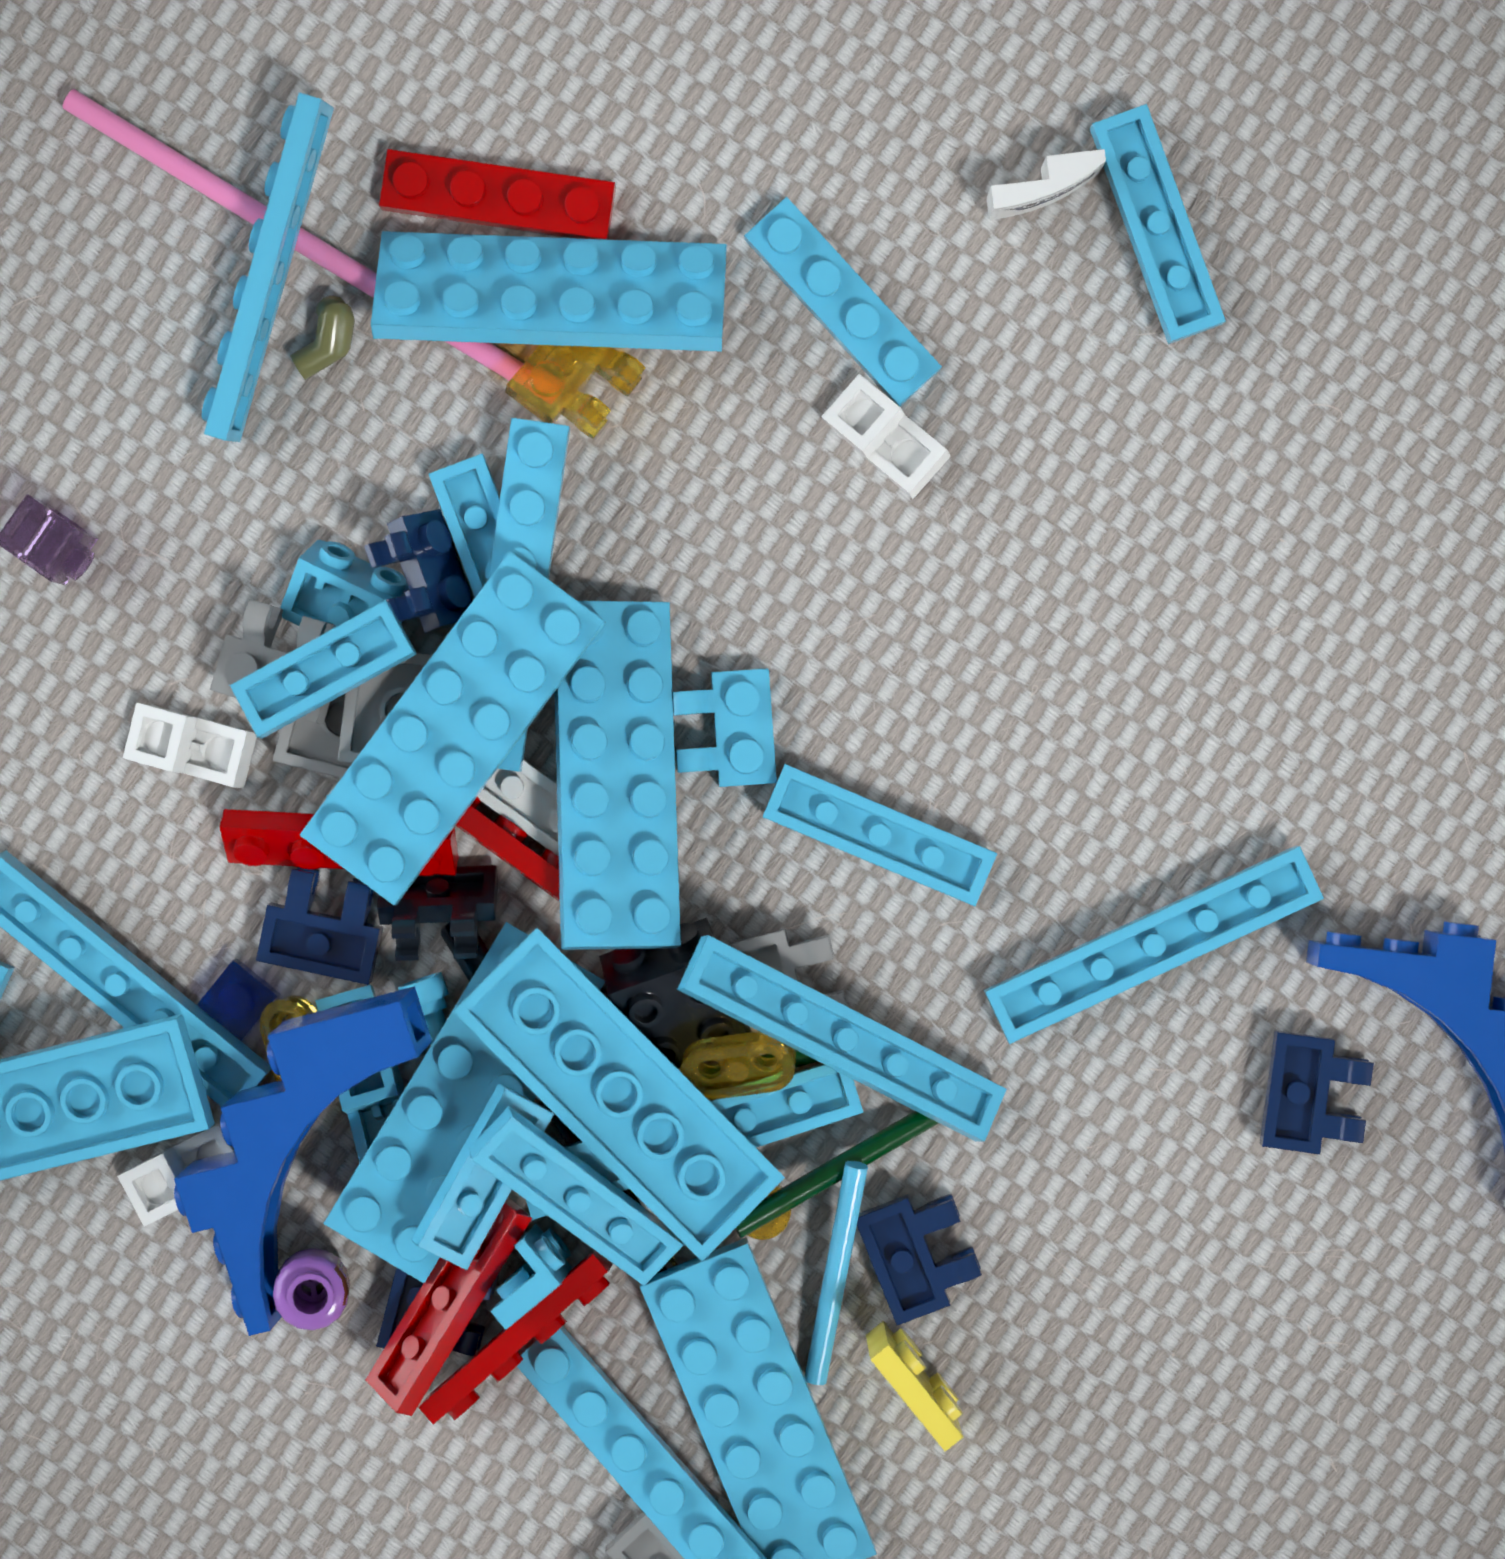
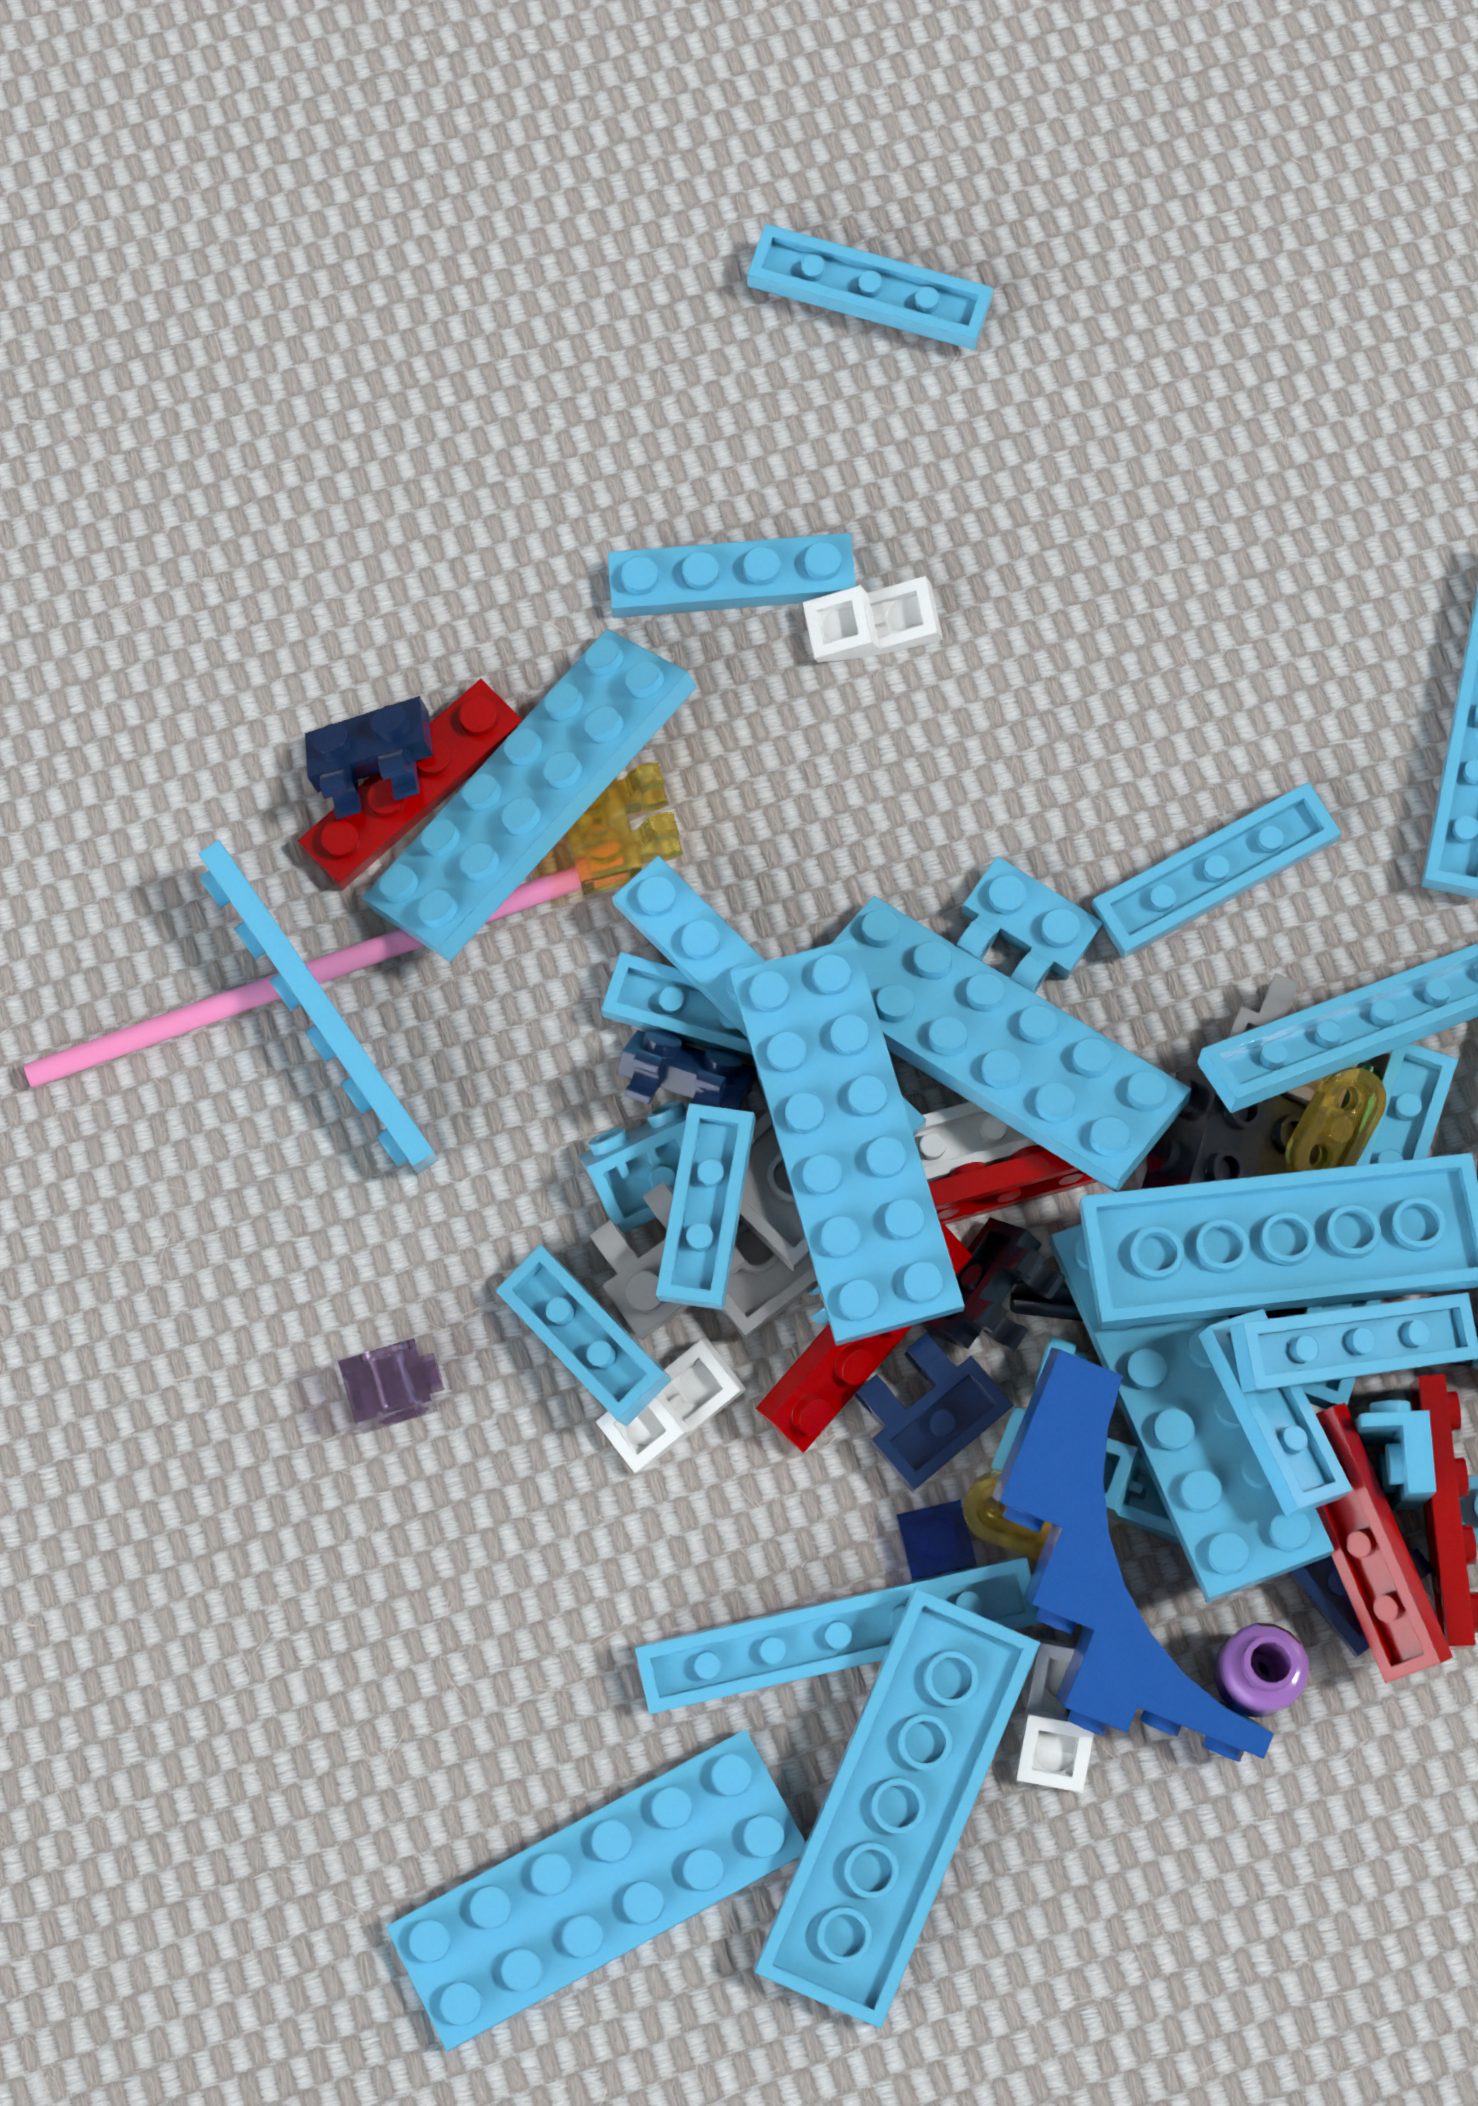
camera: 50 degrees left, 15 degrees down
(183, 648) = (583, 1335): none -> medium azure plate
(332, 338) = (418, 1008): olive arm -> none
(498, 144) = (369, 744): none -> dark blue plate
(1060, 177) = (768, 341): white slope -> none

